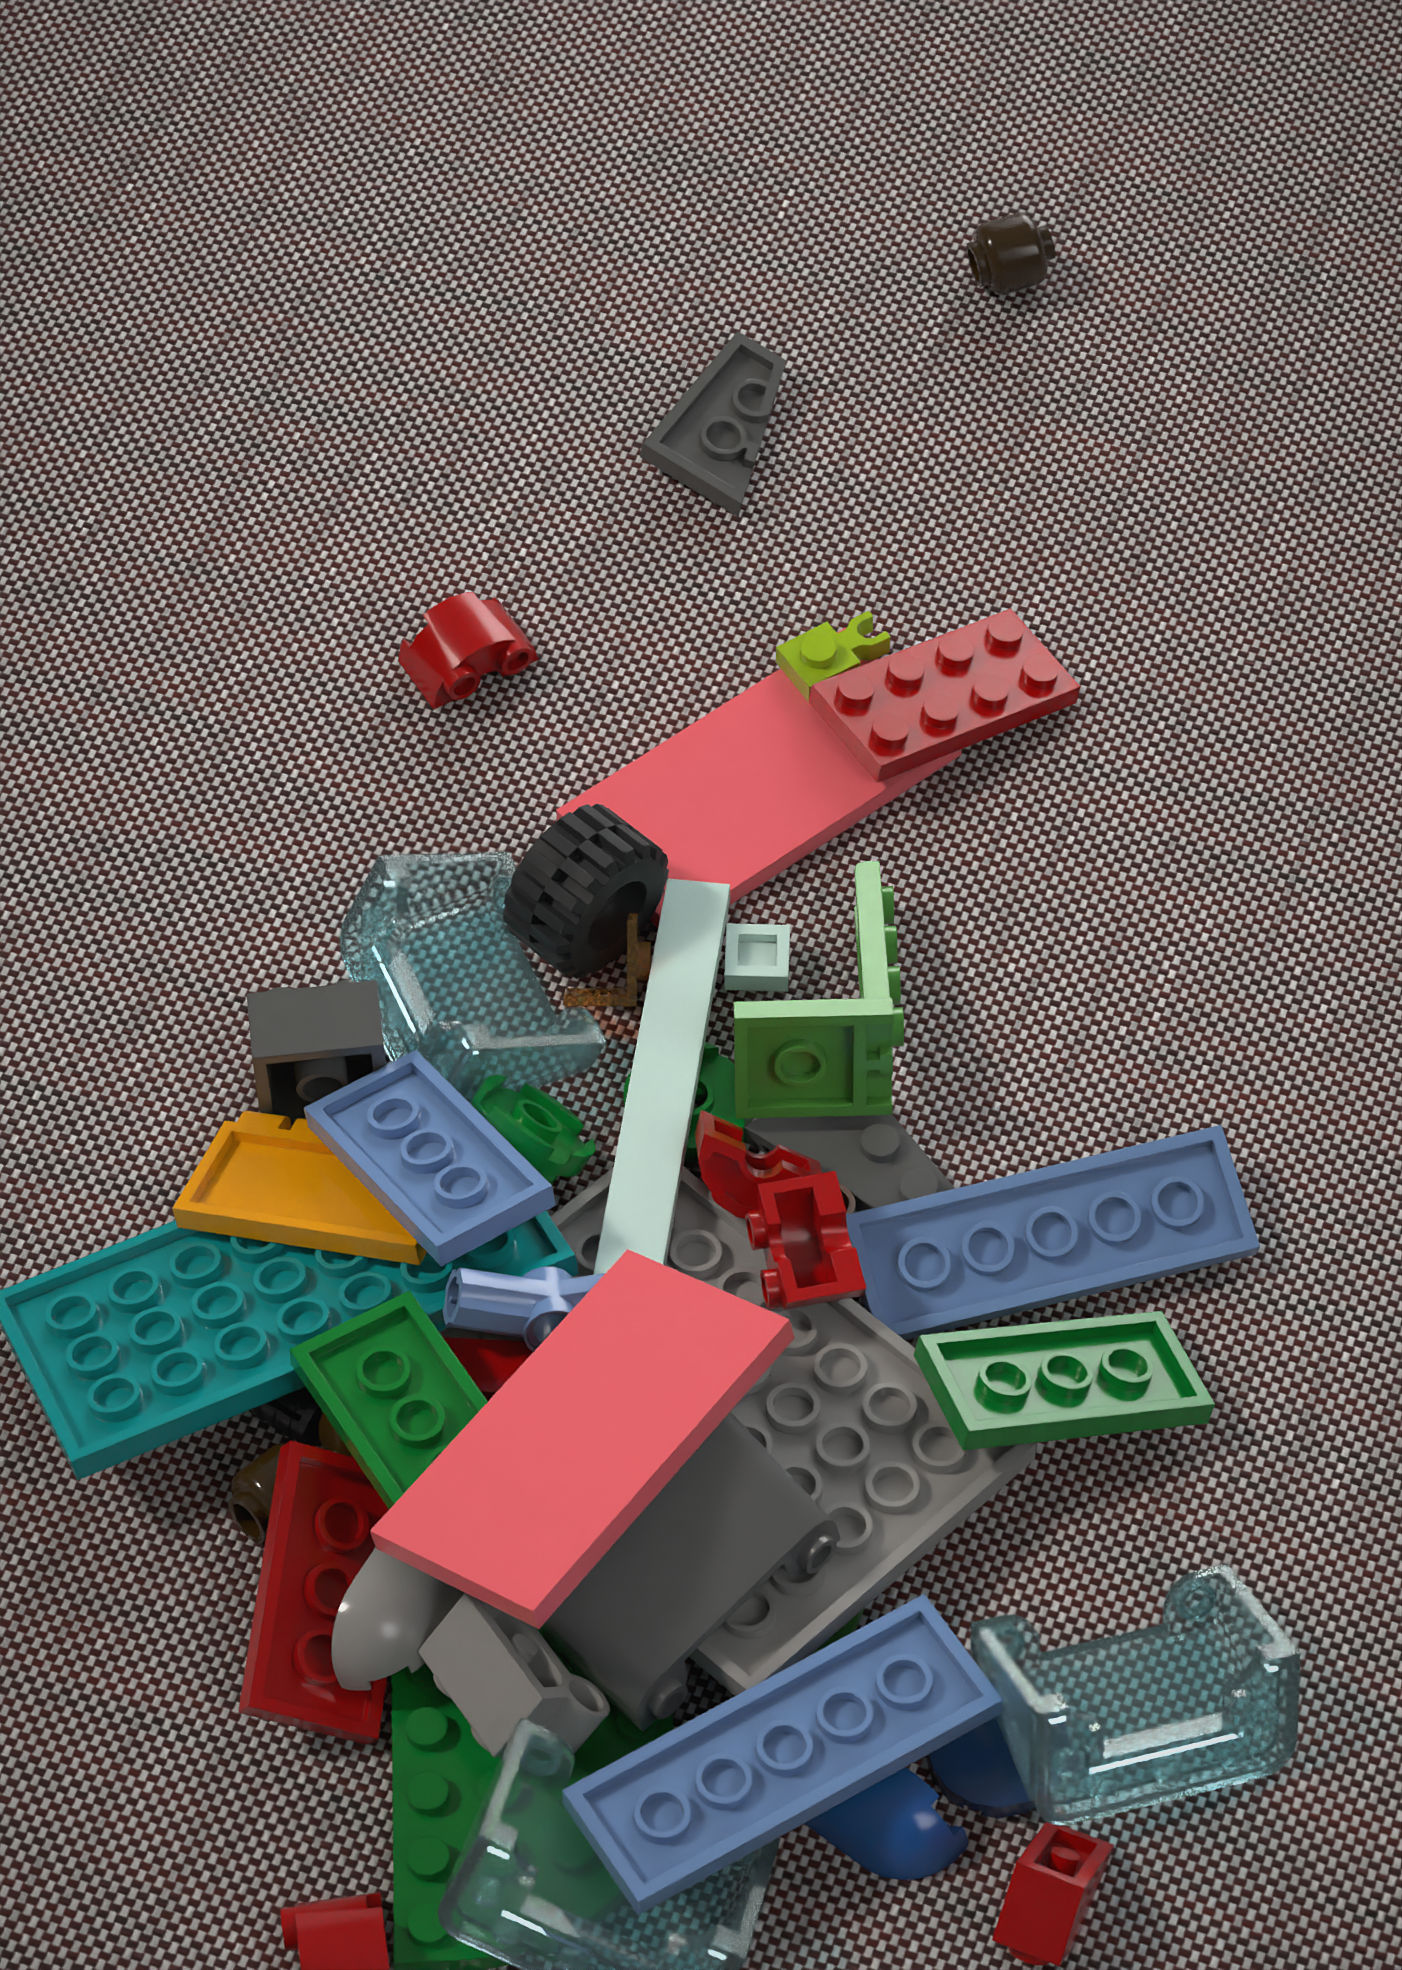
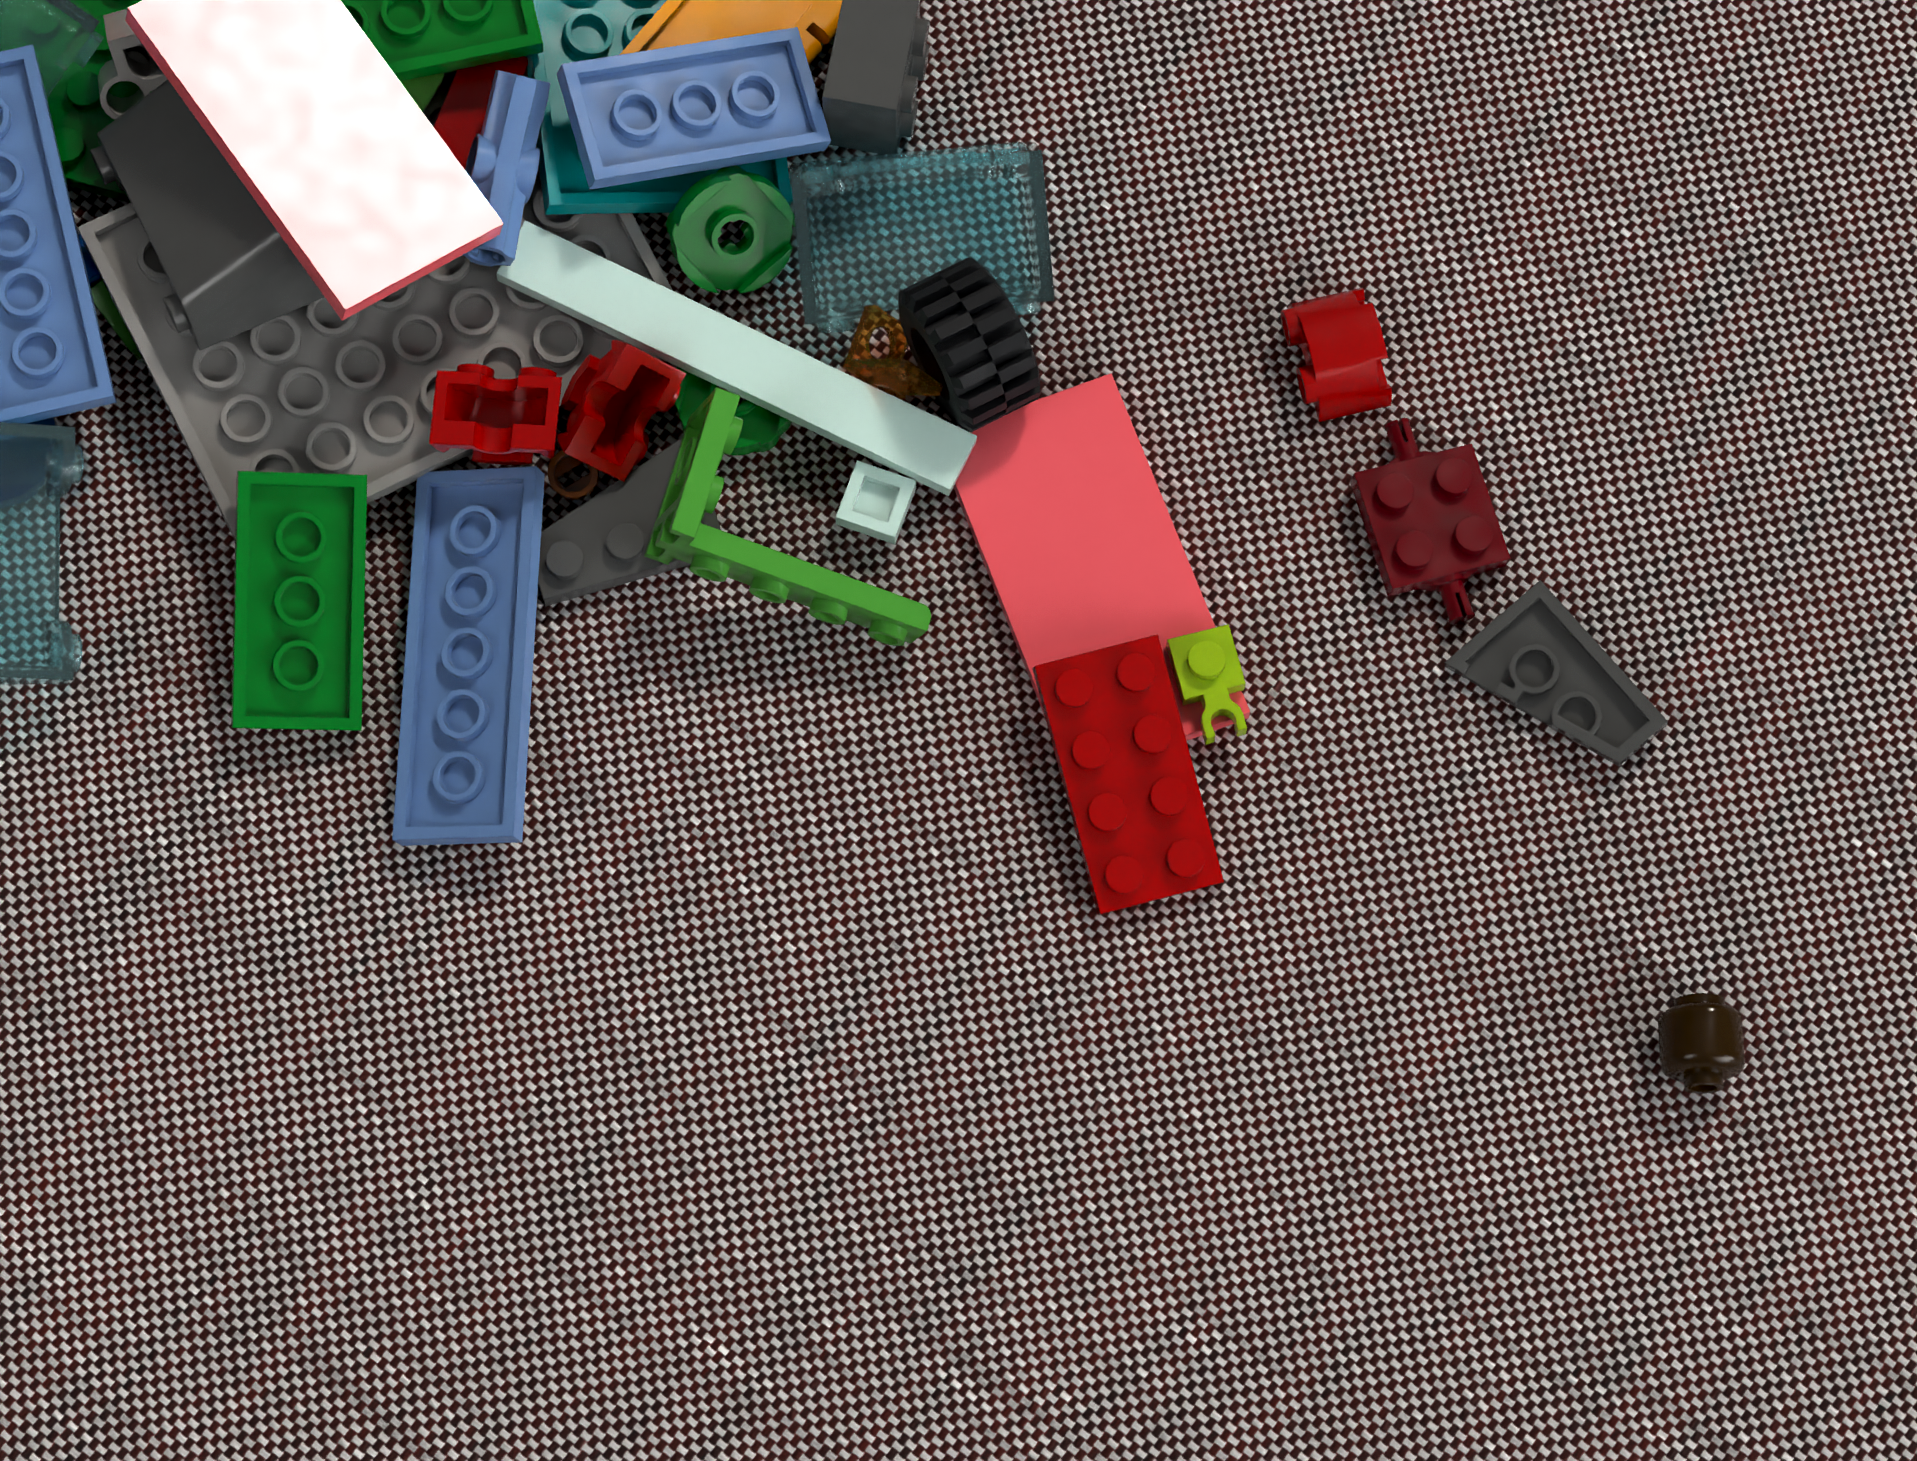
camera: 105 degrees right, 20 degrees up
(608, 548) = (1429, 520): none -> dark red plate

